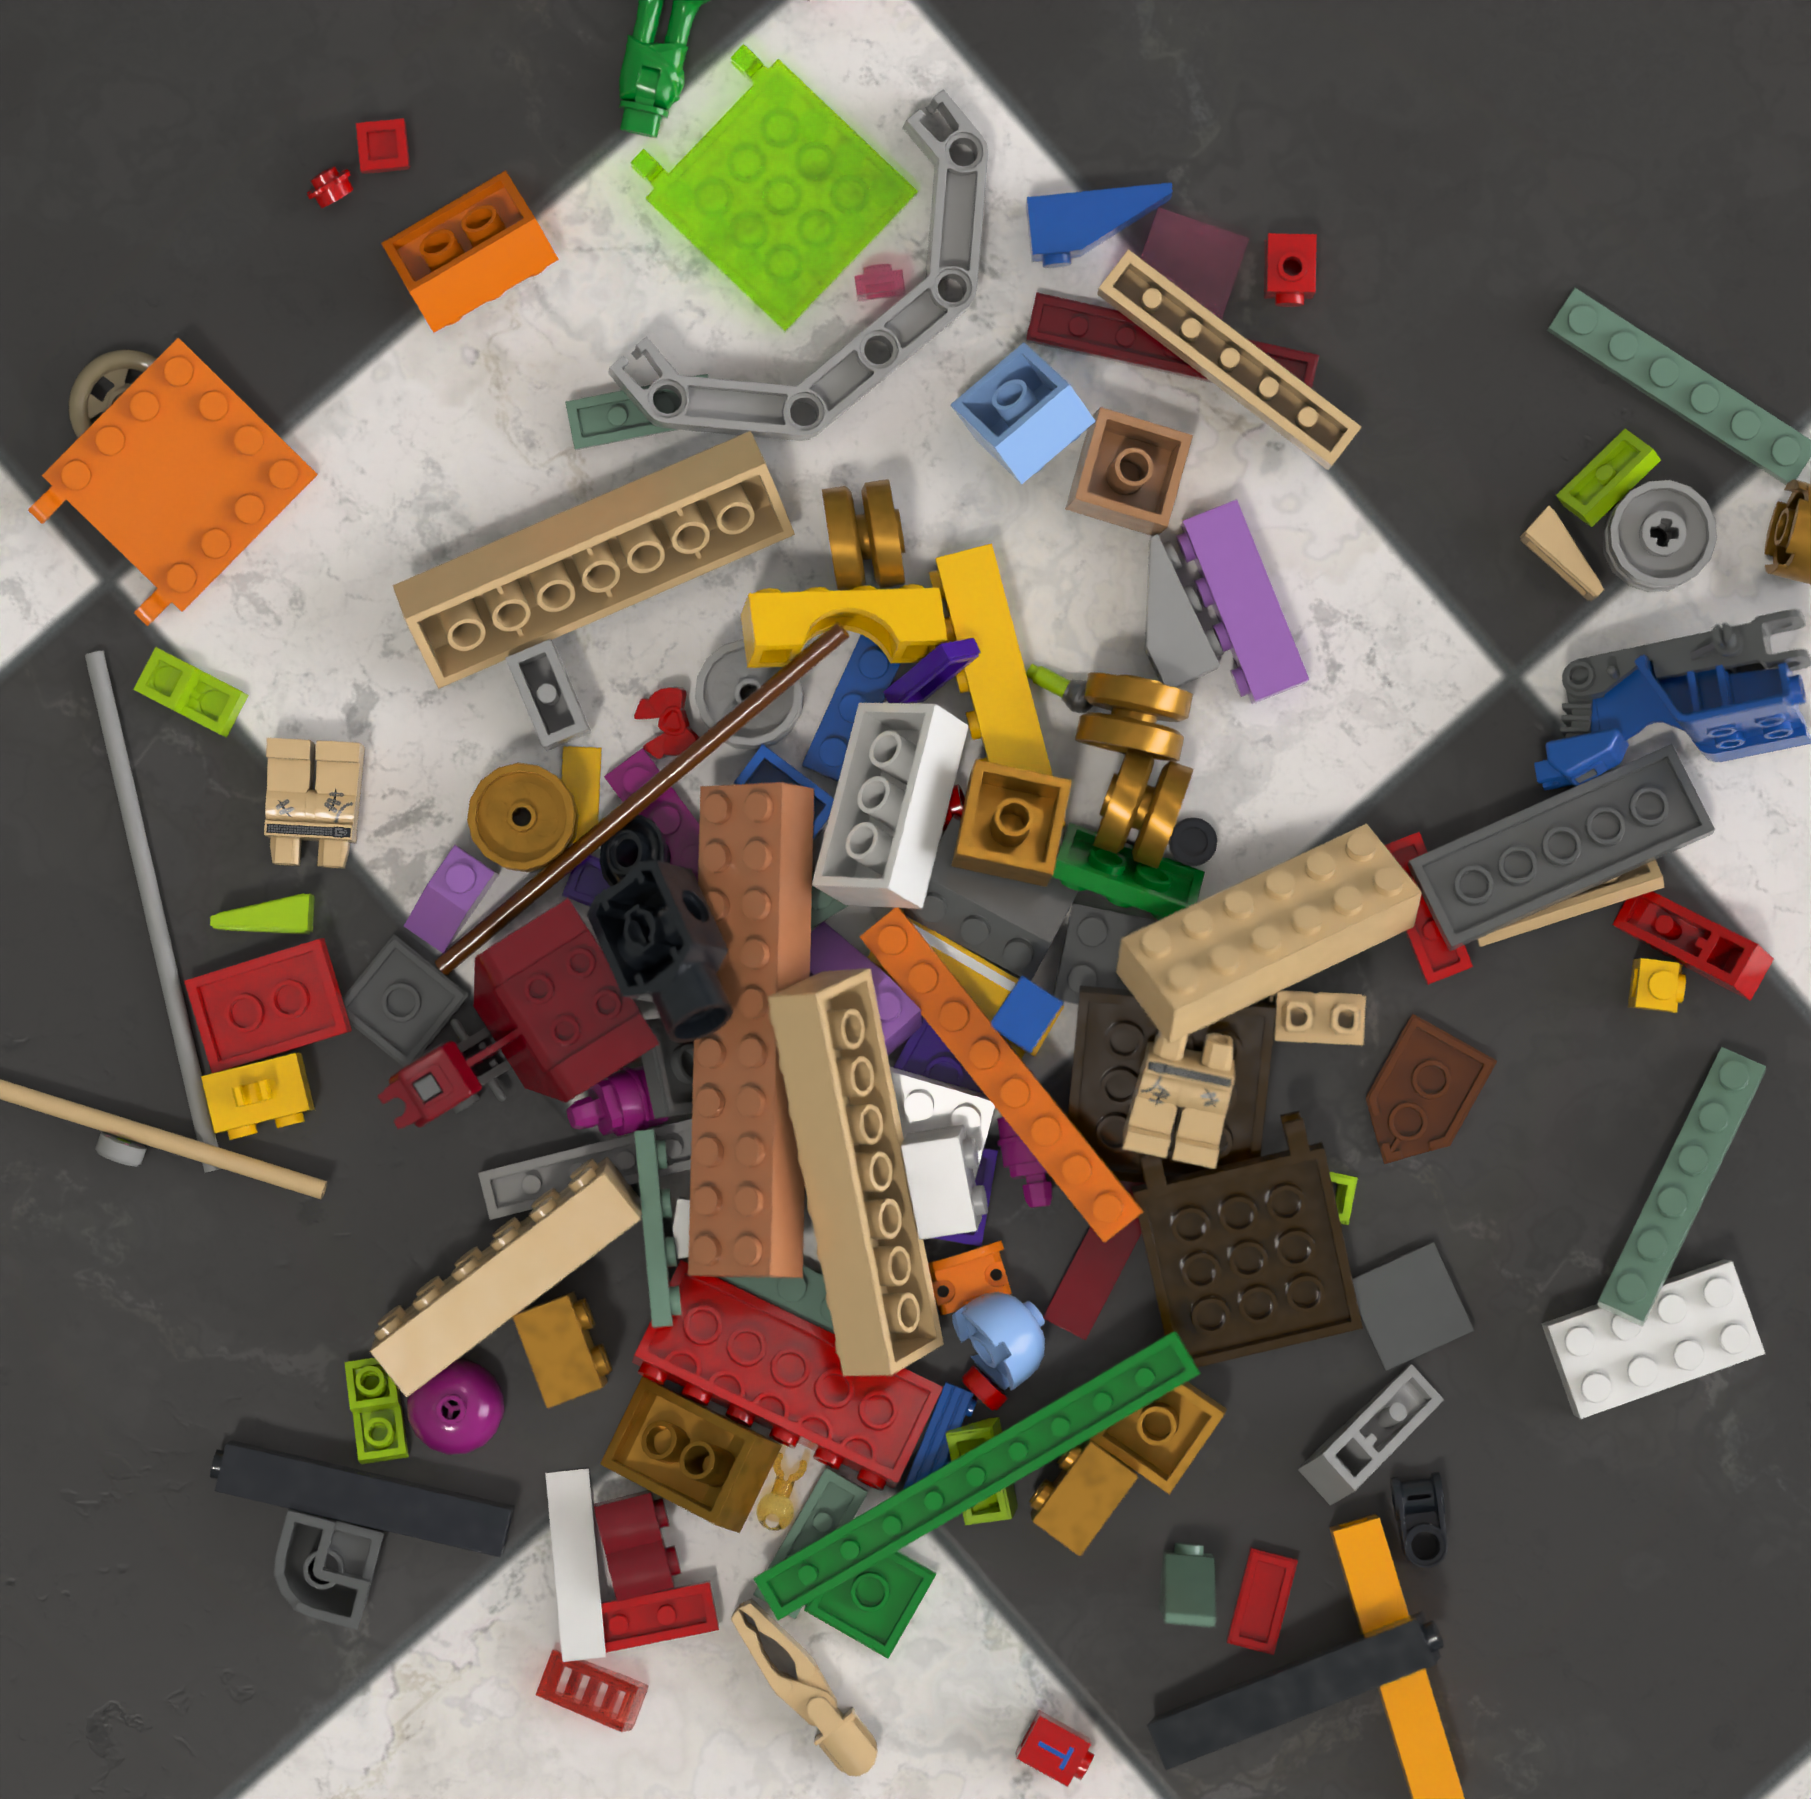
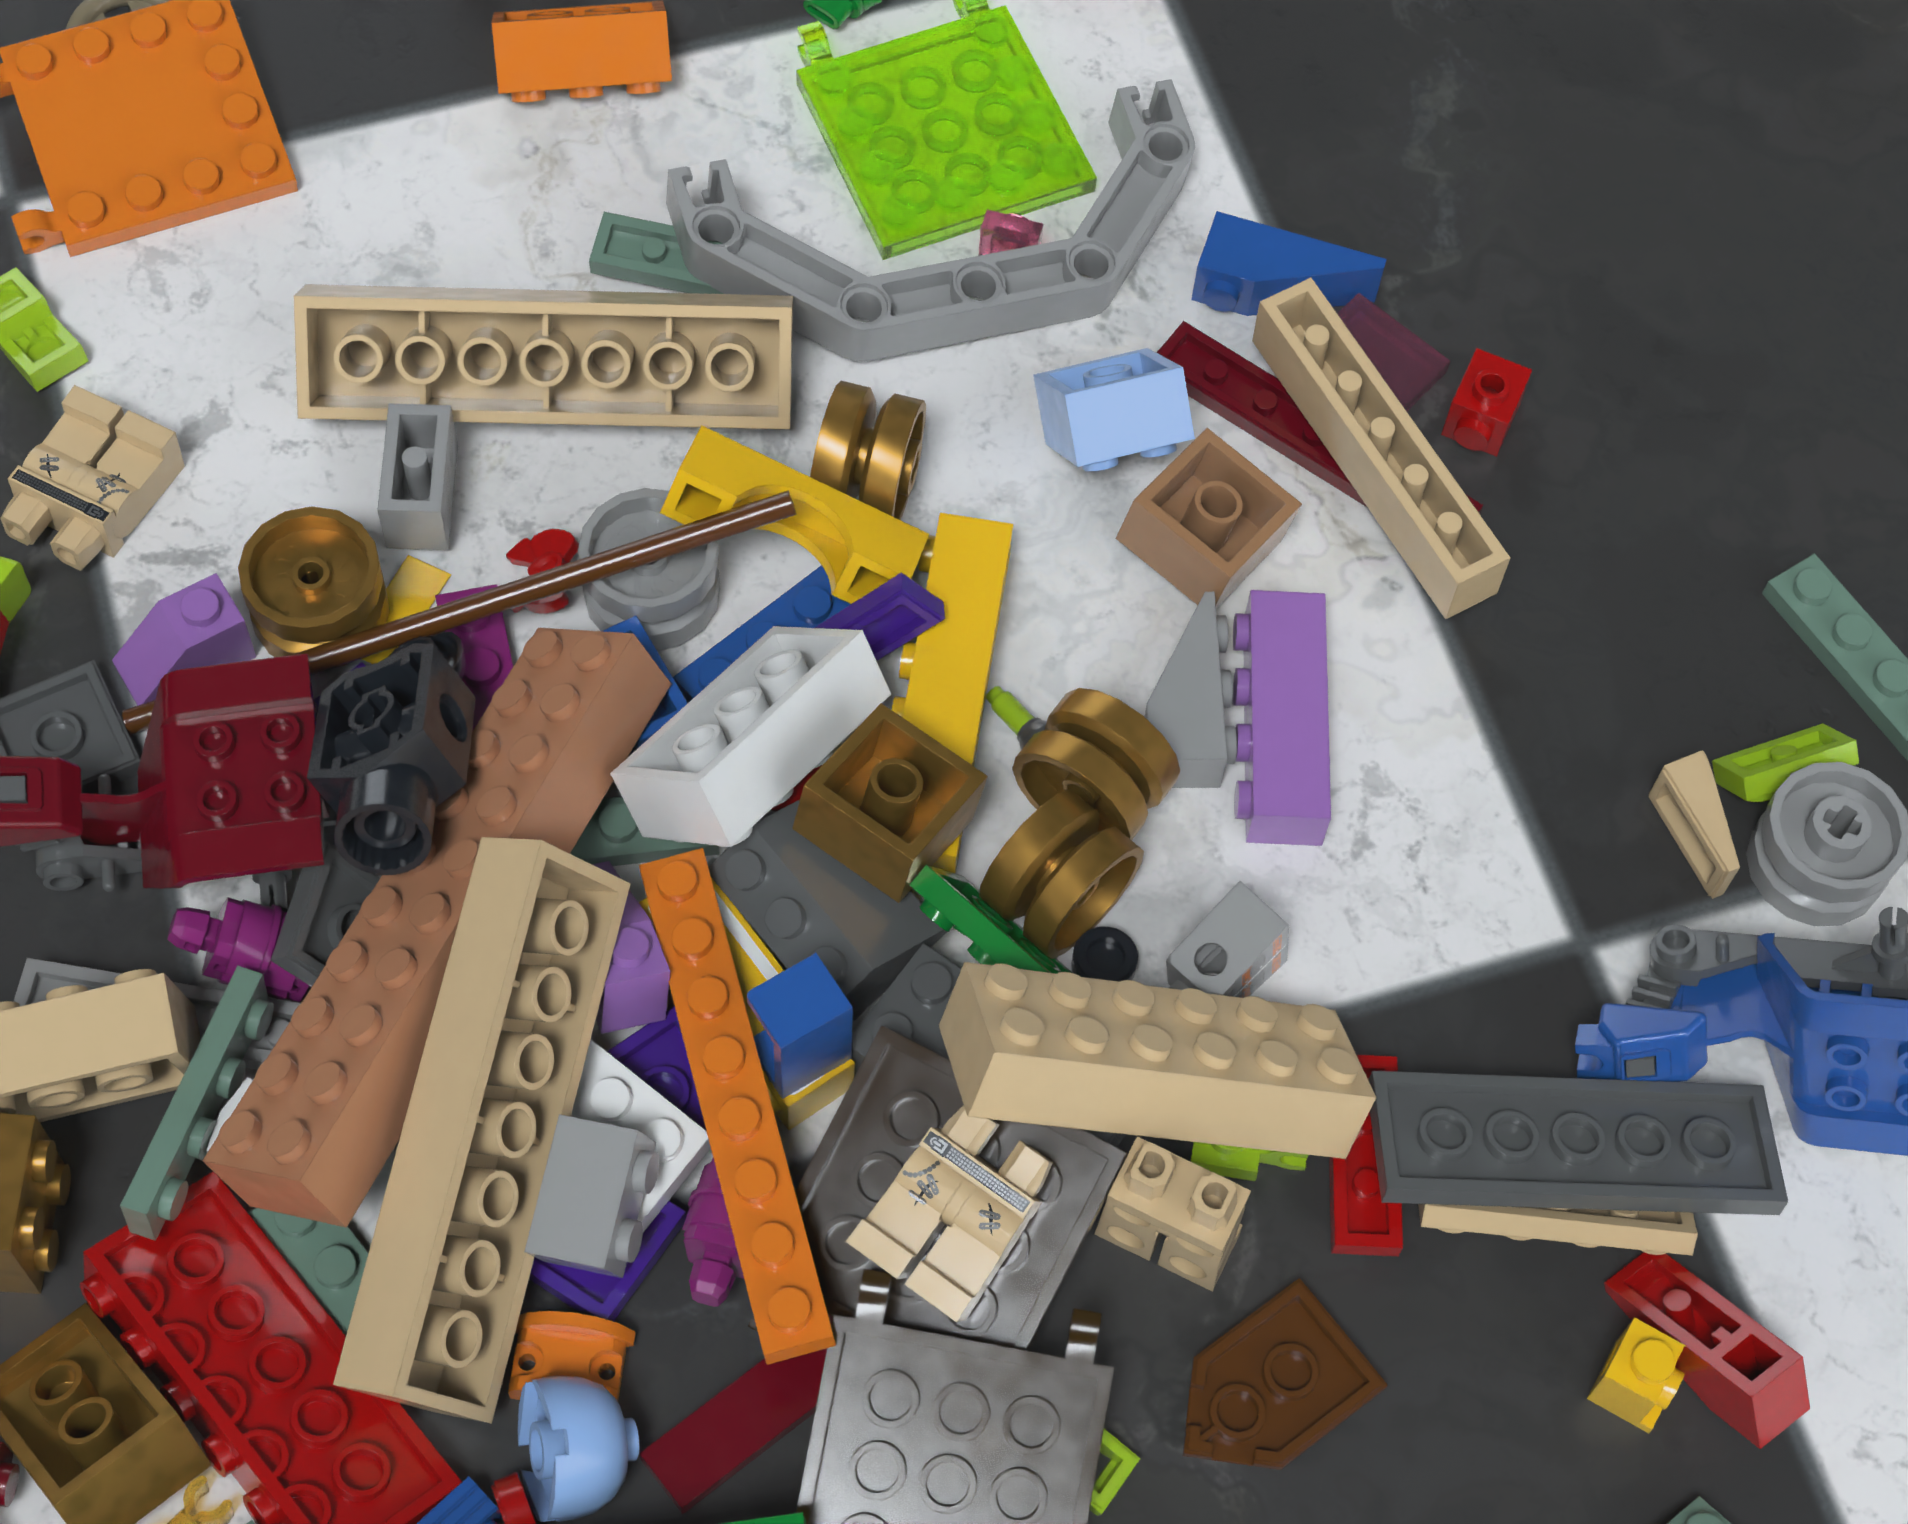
camera: 15 degrees right, 25 degrees down
(1284, 801) = (1237, 941): none -> light grey torso

